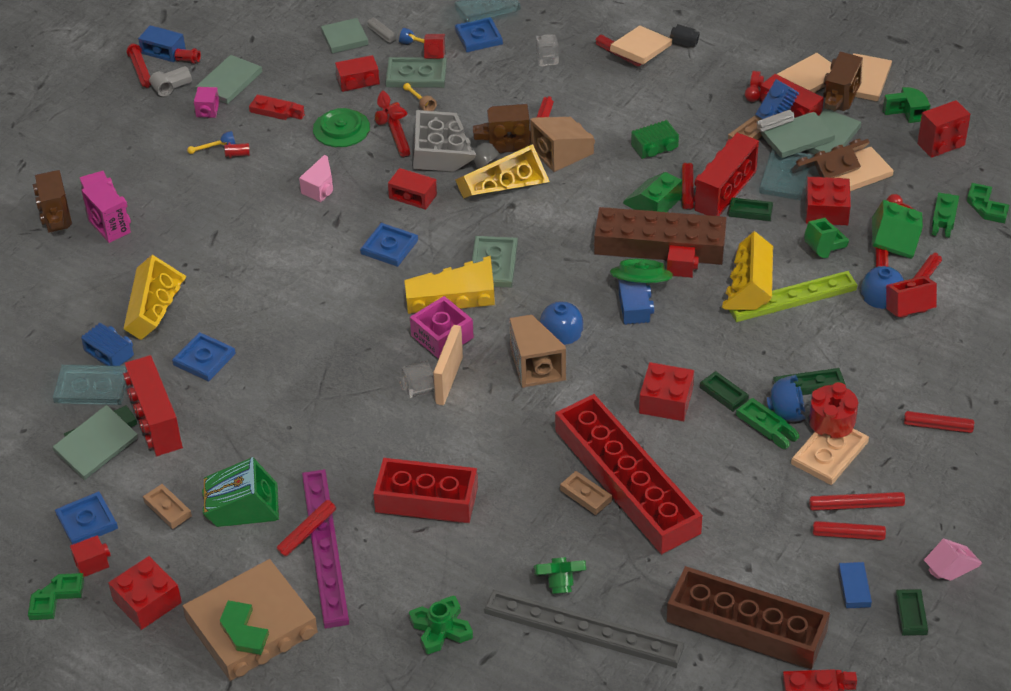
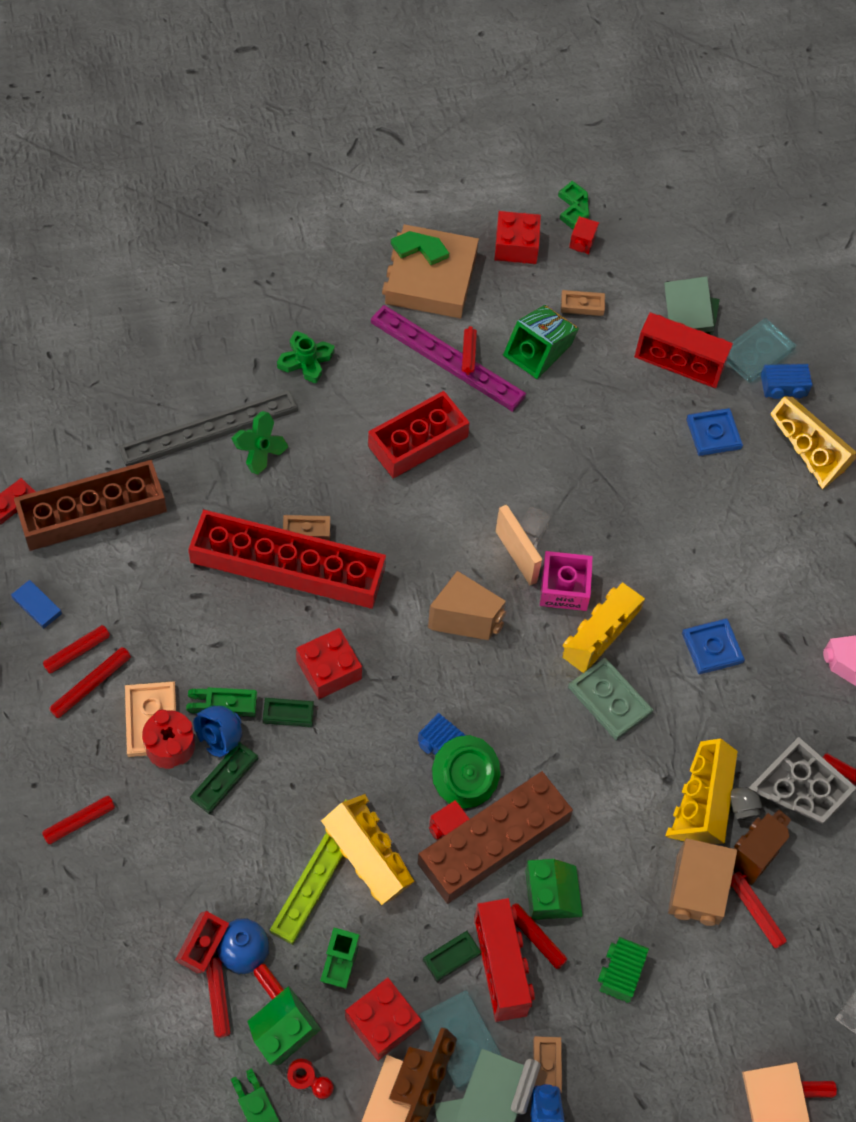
camera: 130 degrees right, 15 degrees up
(86, 518) = (624, 262): blue tile -> none
(412, 188) = (763, 716): red brick -> none
(563, 321) = (483, 672): blue cylinder -> none

